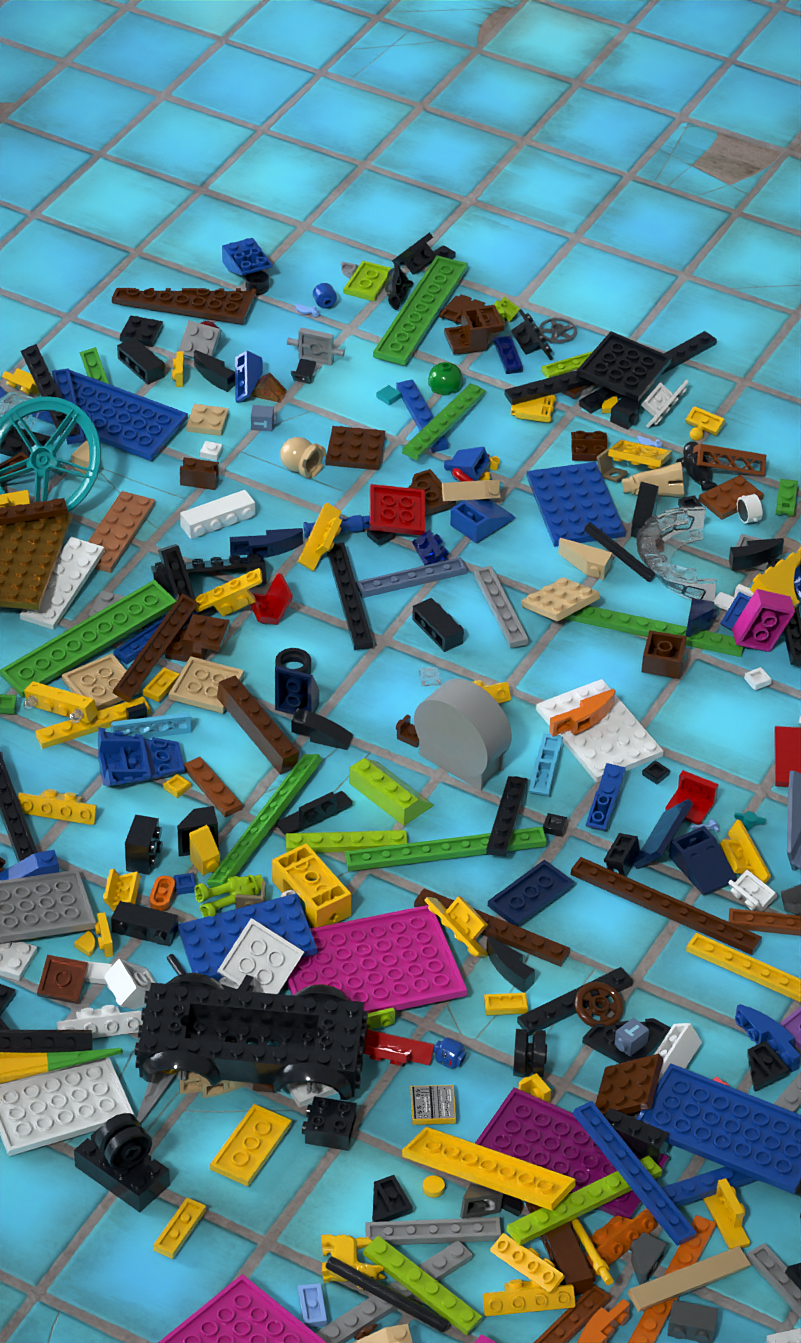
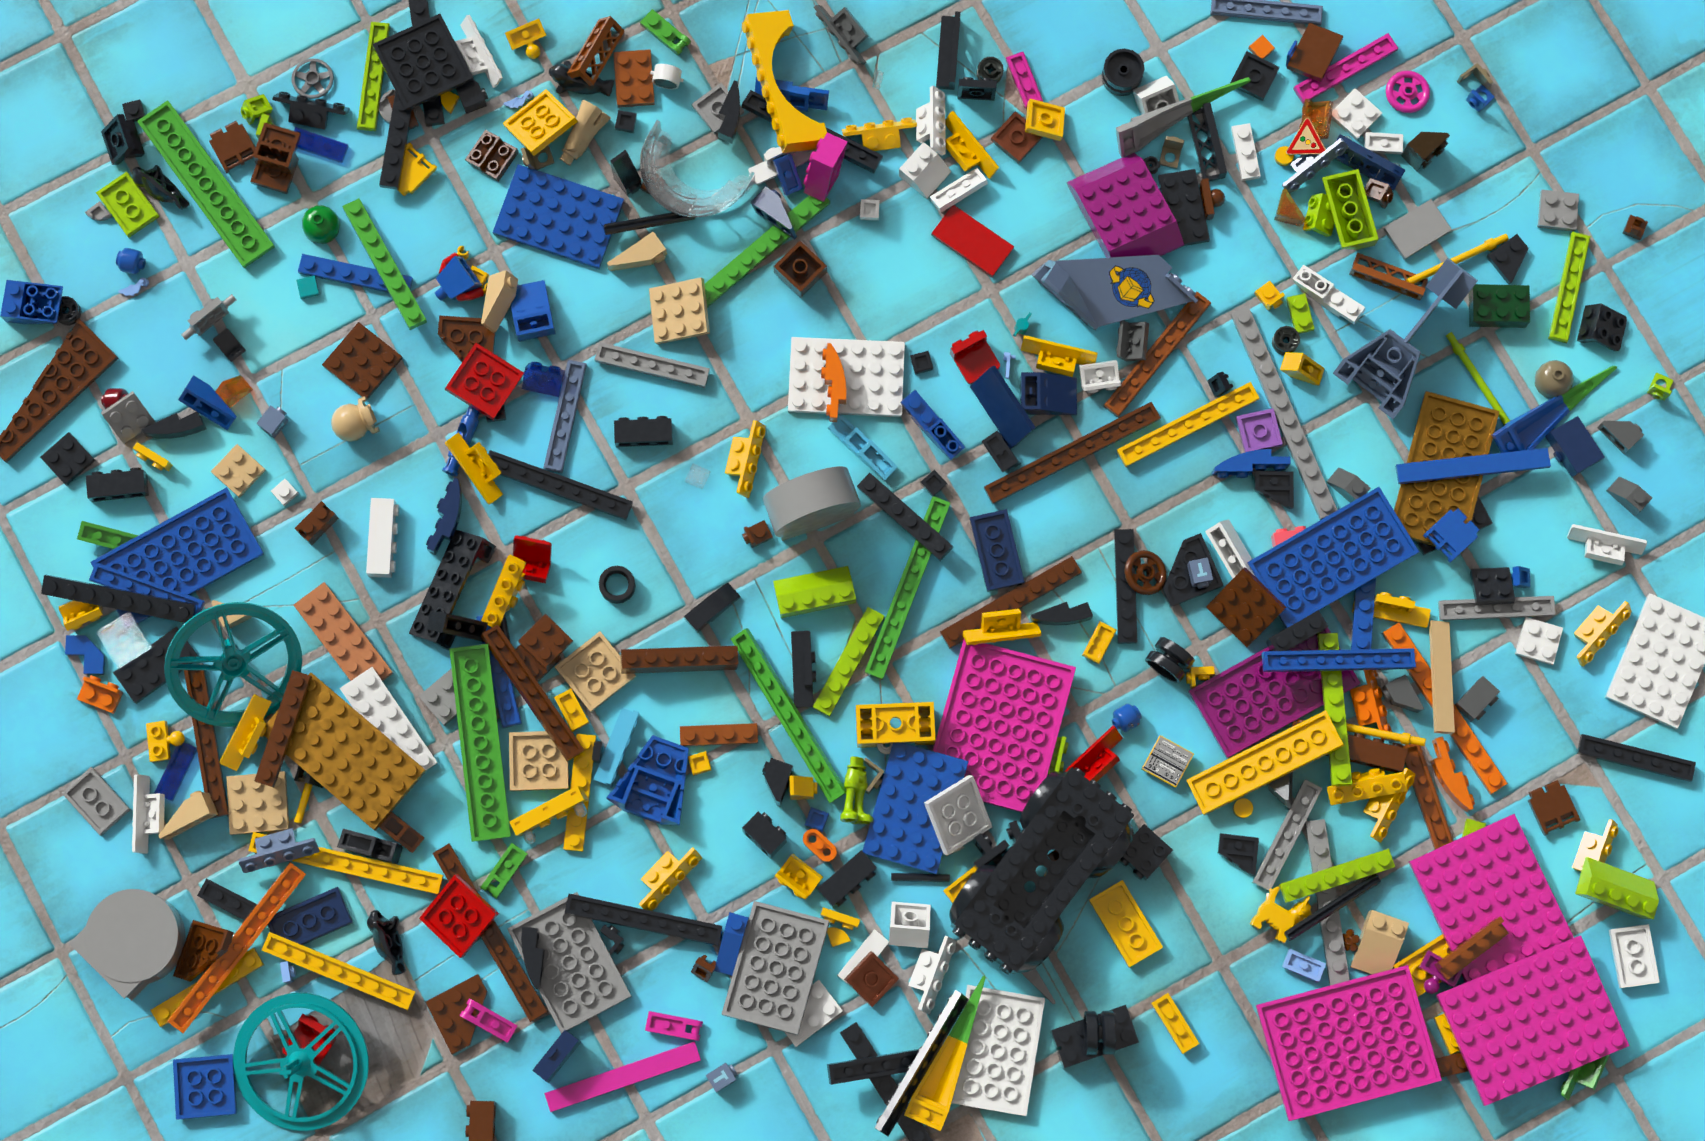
camera: 60 degrees left, 35 degrees up
(295, 691) = (663, 605): dark blue slope -> none

